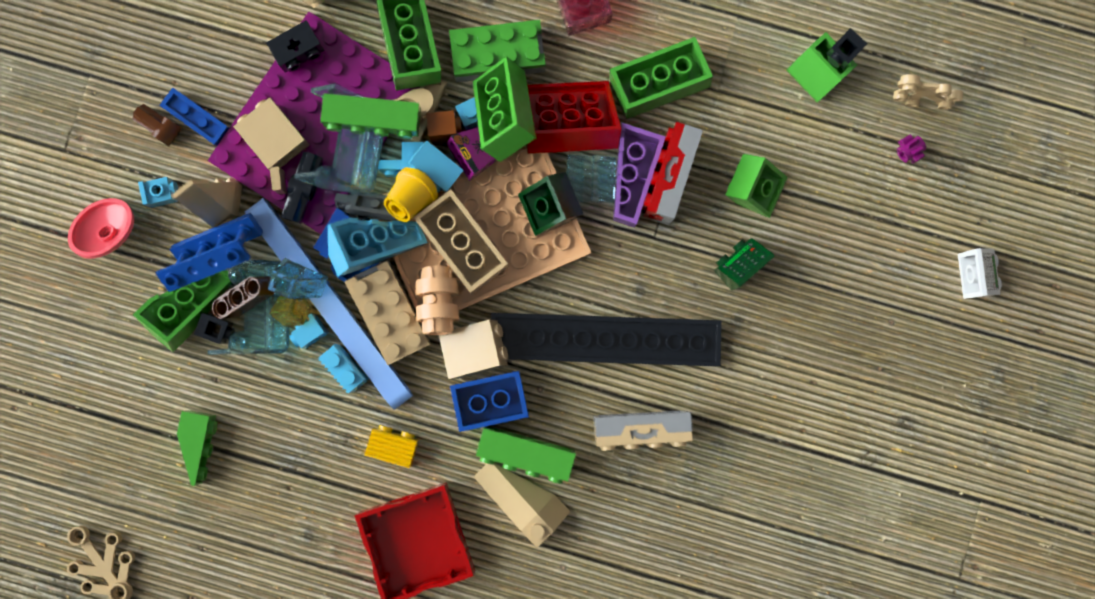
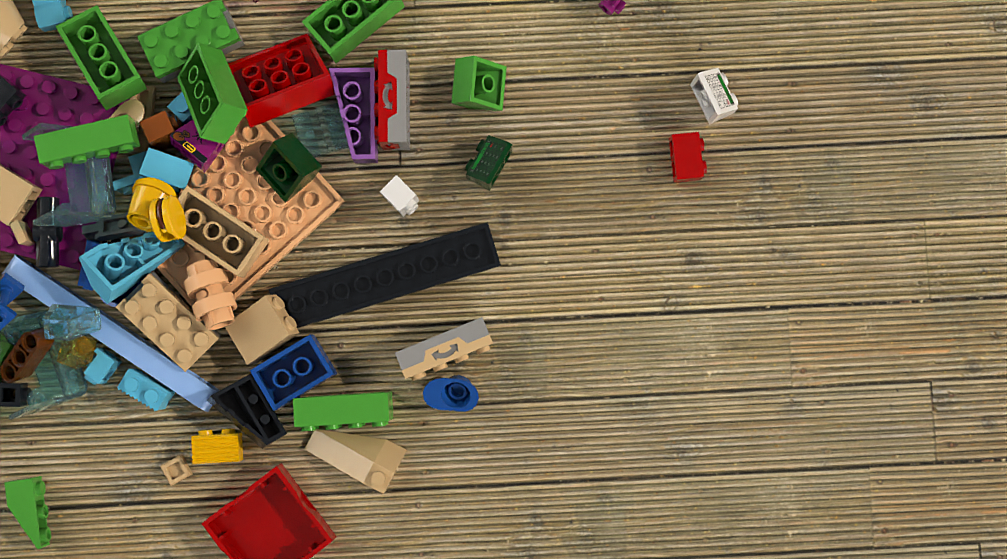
camera: 20 degrees left, 0 degrees up
(345, 454) = (176, 470): none -> tan tile
(424, 216) = (167, 218): none -> yellow head
(435, 424) = (249, 411): none -> black wedge
(632, 474) = (451, 394): none -> blue piece
(647, 268) = (400, 196): none -> white brick
(933, 323) = (687, 157): none -> red brick

